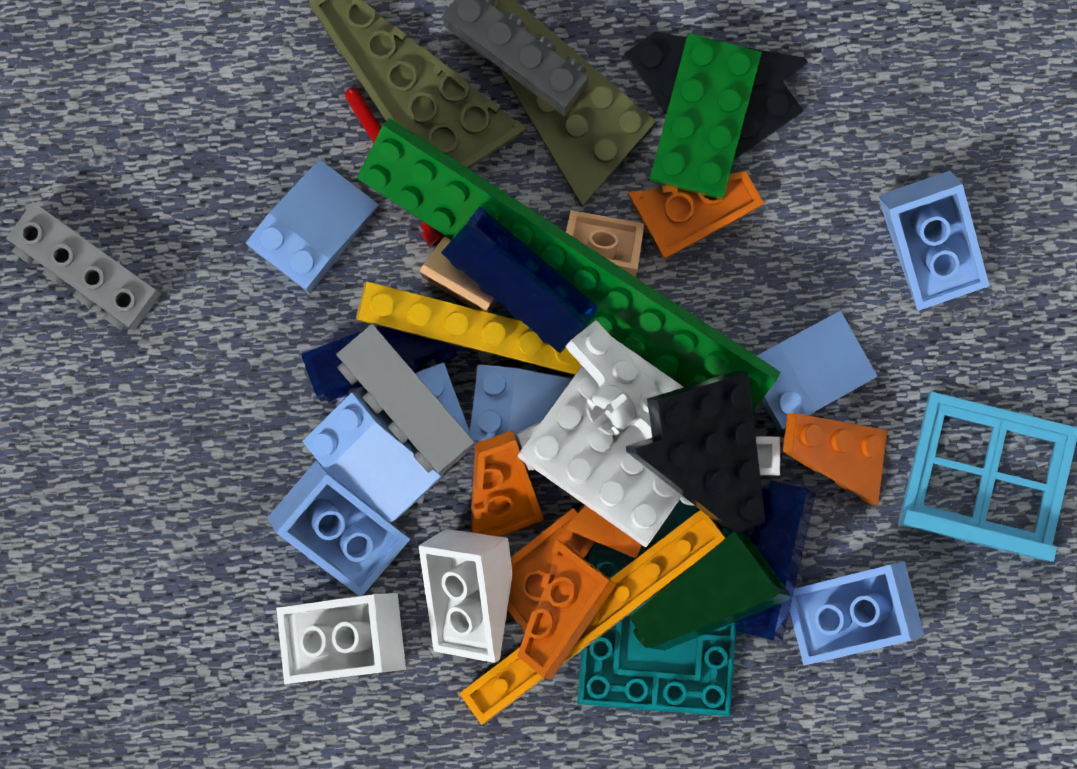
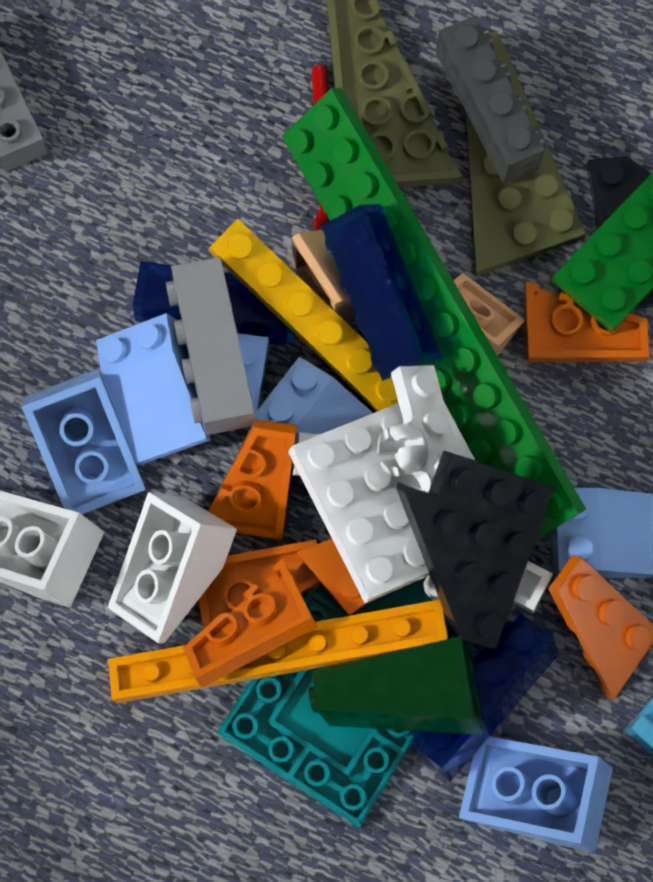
camera: 25 degrees right, 10 degrees down
(312, 225) = (216, 162): light blue slope -> none

